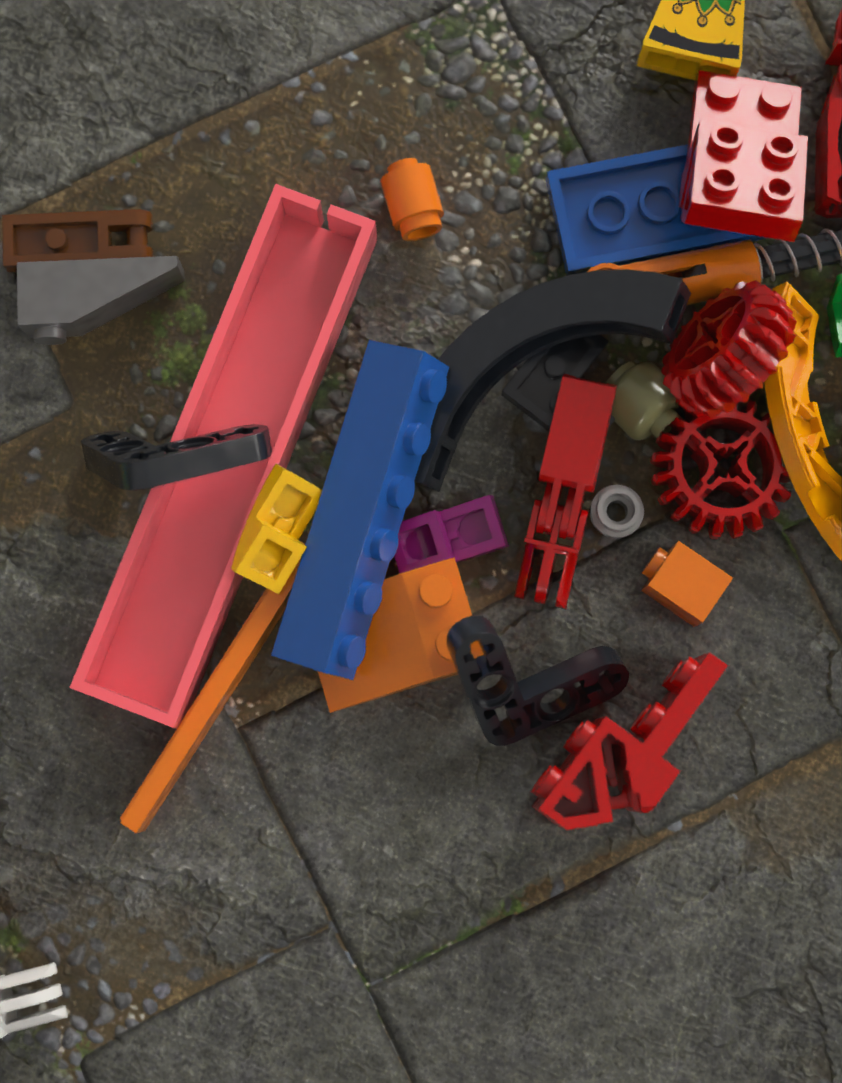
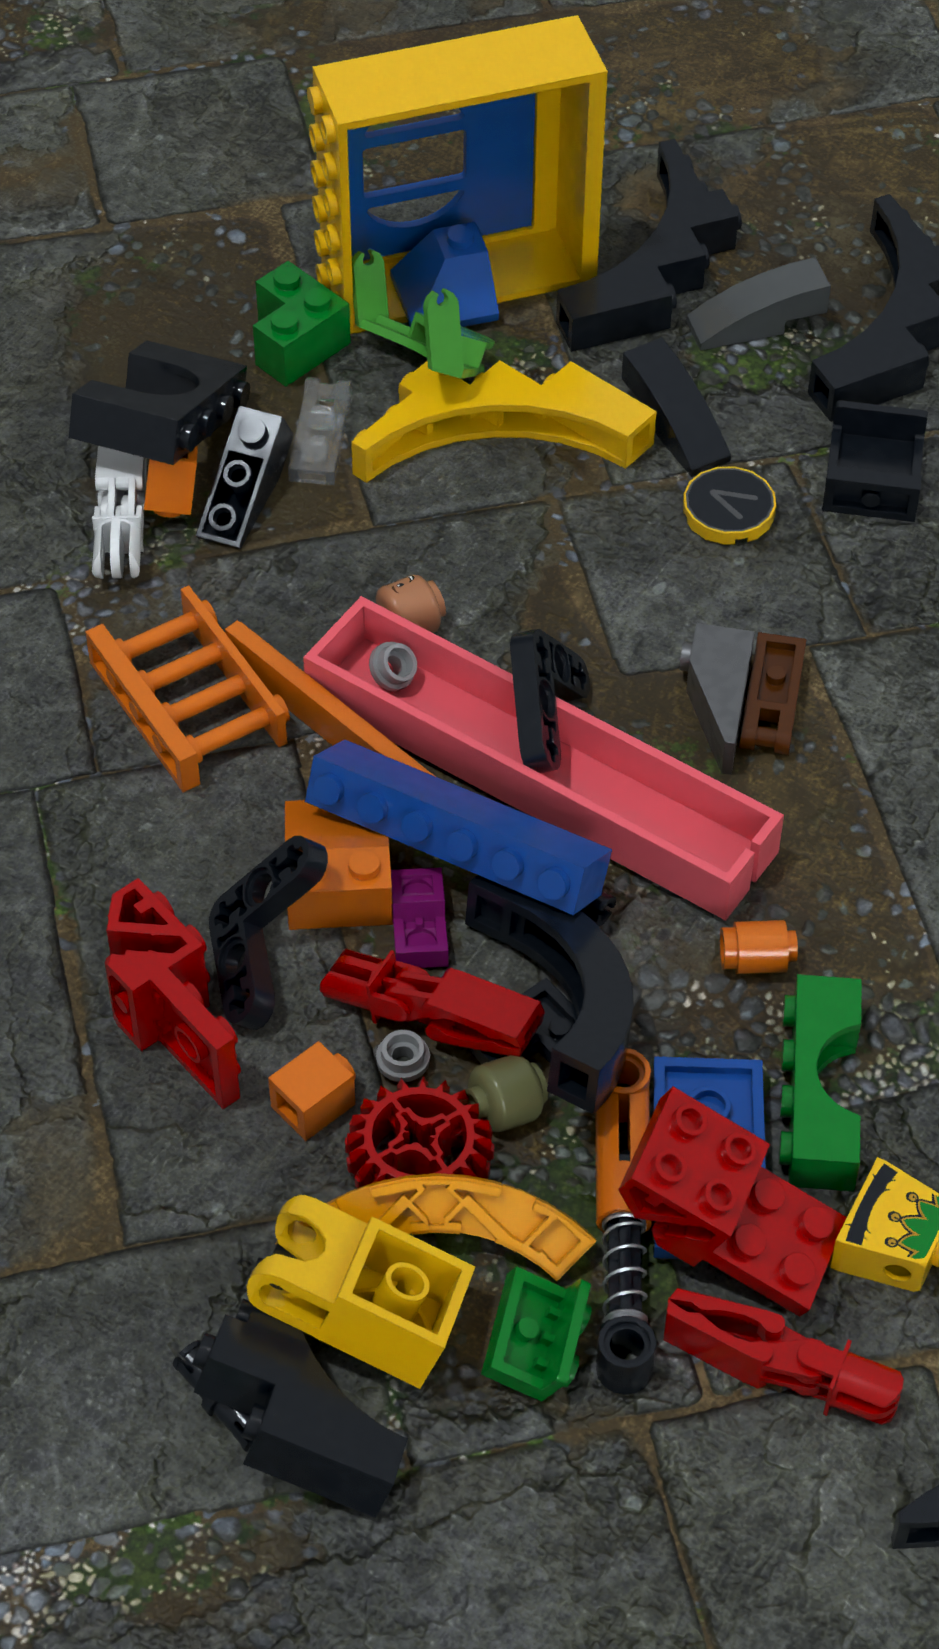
camera: 105 degrees right, 30 degrees down
(48, 642) = (414, 600): none -> nougat head
(143, 635) = (402, 661): none -> light grey plate
(221, 910) = (160, 722): none -> orange fence
(271, 535) = (455, 756): yellow slope -> none
(492, 127) = (822, 1135): none -> green arch
(729, 349) = (531, 1146): red gear -> none

